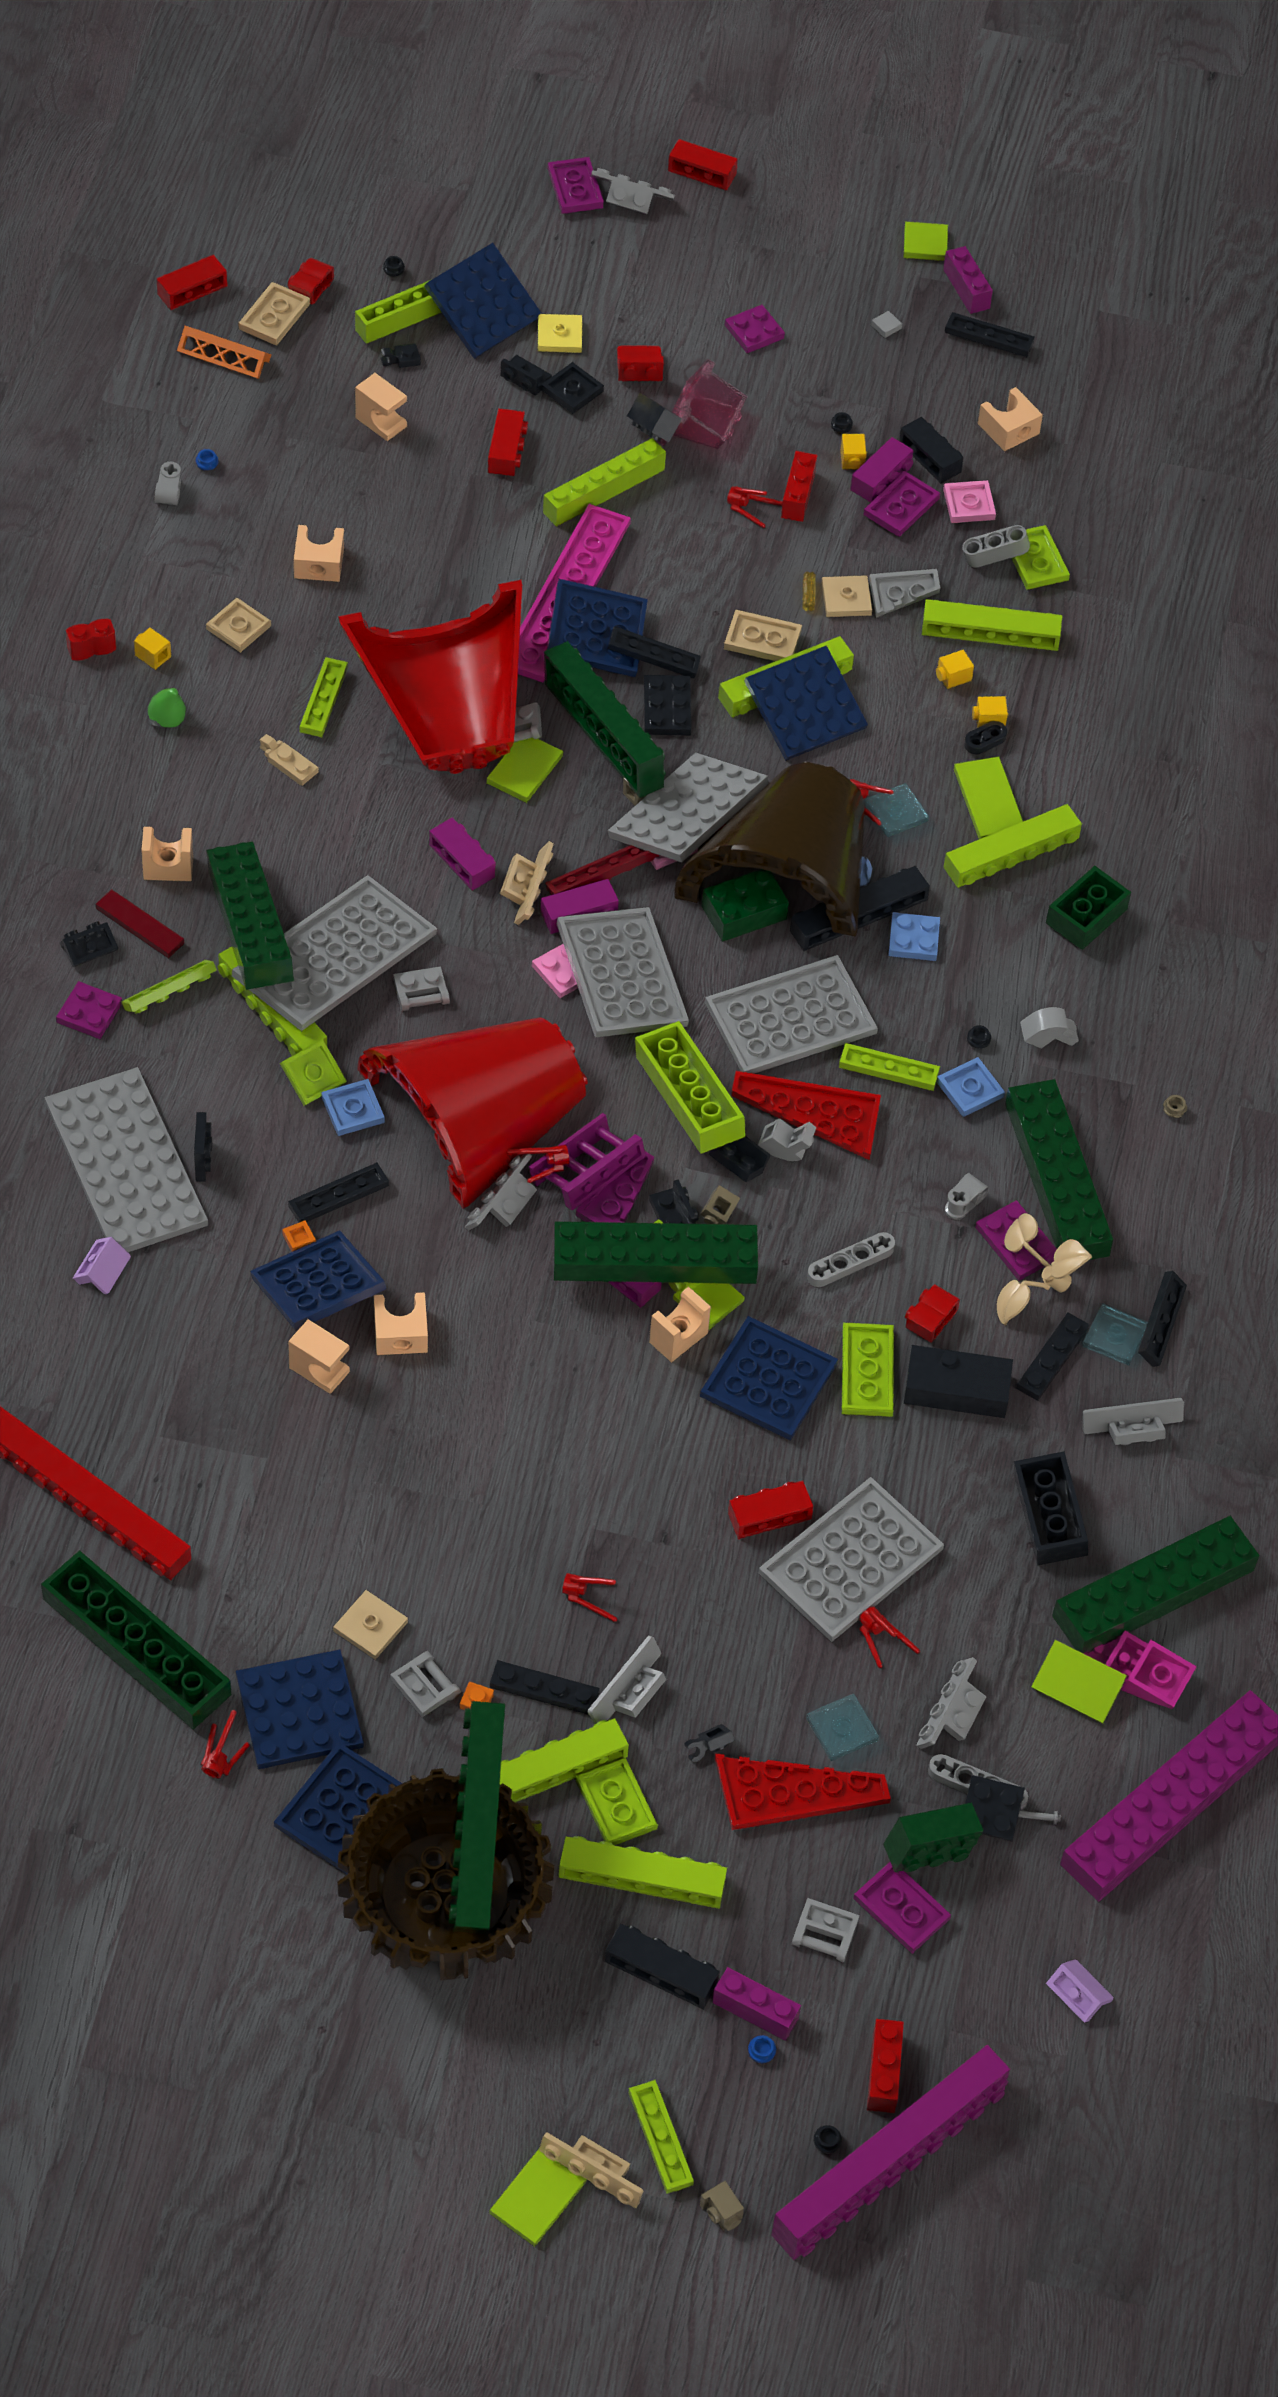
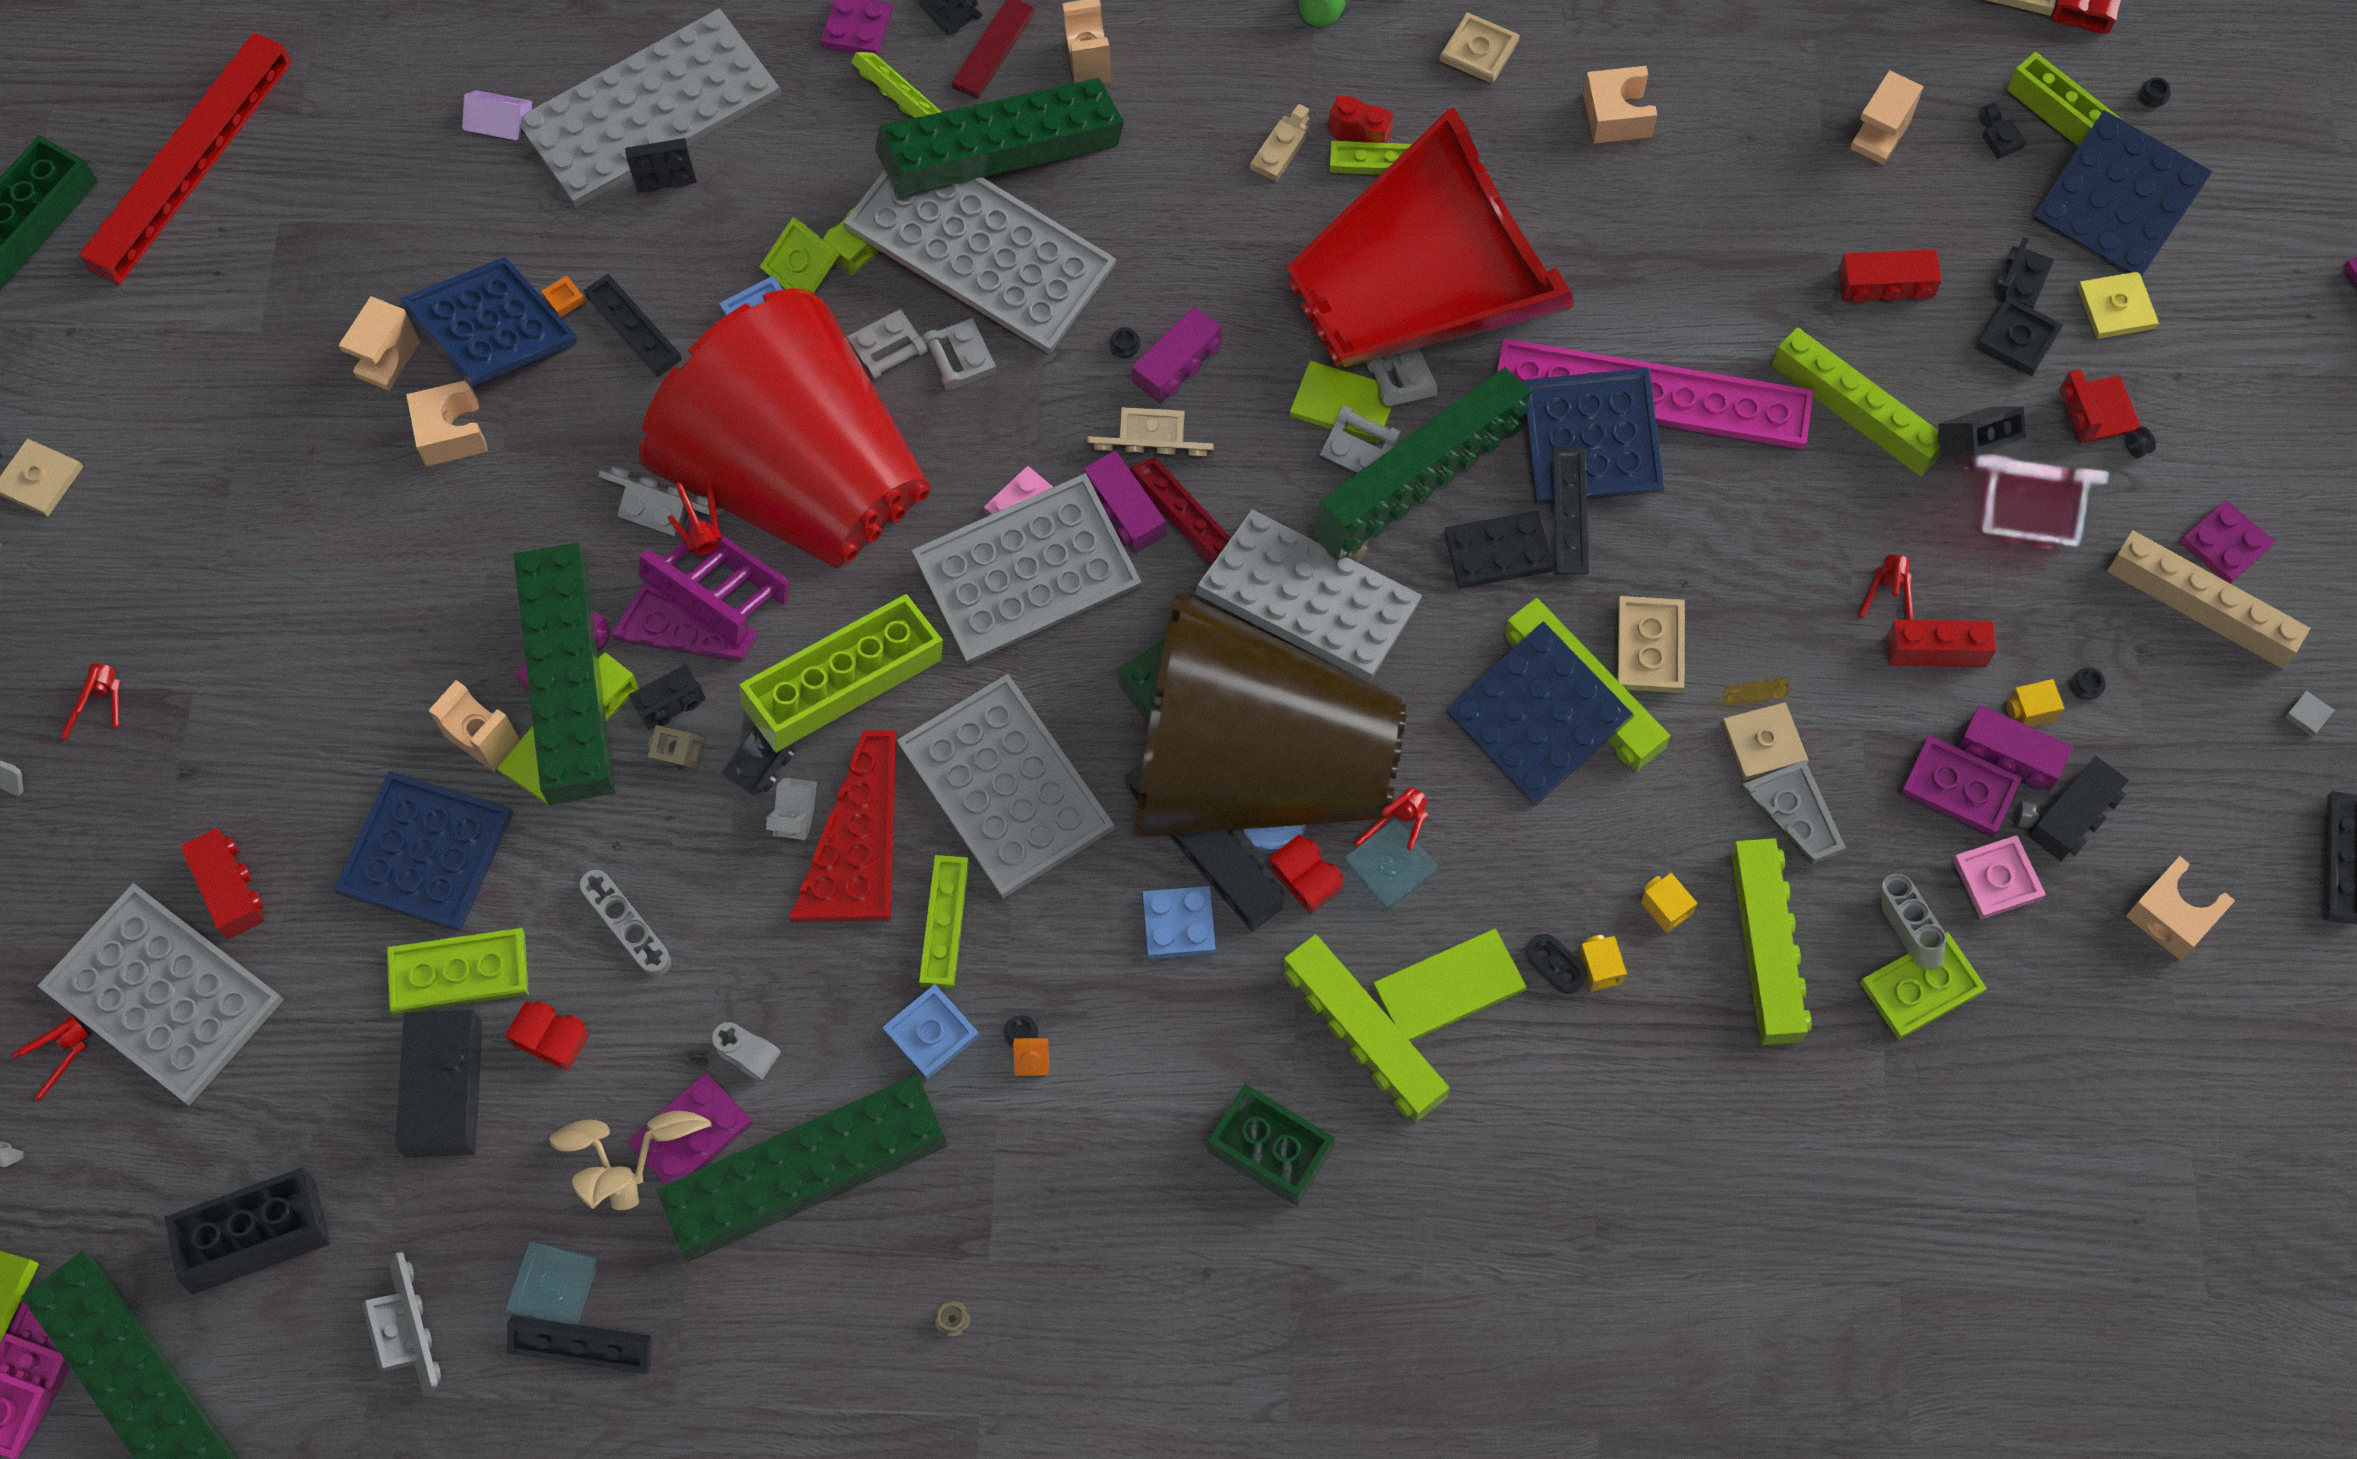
camera: 85 degrees right, 10 degrees up
(289, 706) = (1359, 122): none -> red brick
(390, 1029) = (884, 337): none -> light grey plate
(439, 885) = (1124, 342): none -> black plate
(572, 767) = (1351, 451): none -> light grey plate
(671, 349) = (2140, 442): none -> black bush
(797, 347) = (2209, 600): none -> tan brick
(893, 856) = (1305, 873): none -> red brick
(926, 473) = (2027, 815): none -> dark grey hinge
(1000, 1031) = (1031, 1057): none -> orange plate
(1048, 1024) = (1046, 1123): light grey brick -> none
(1052, 1356) = (506, 1205): black plate -> none

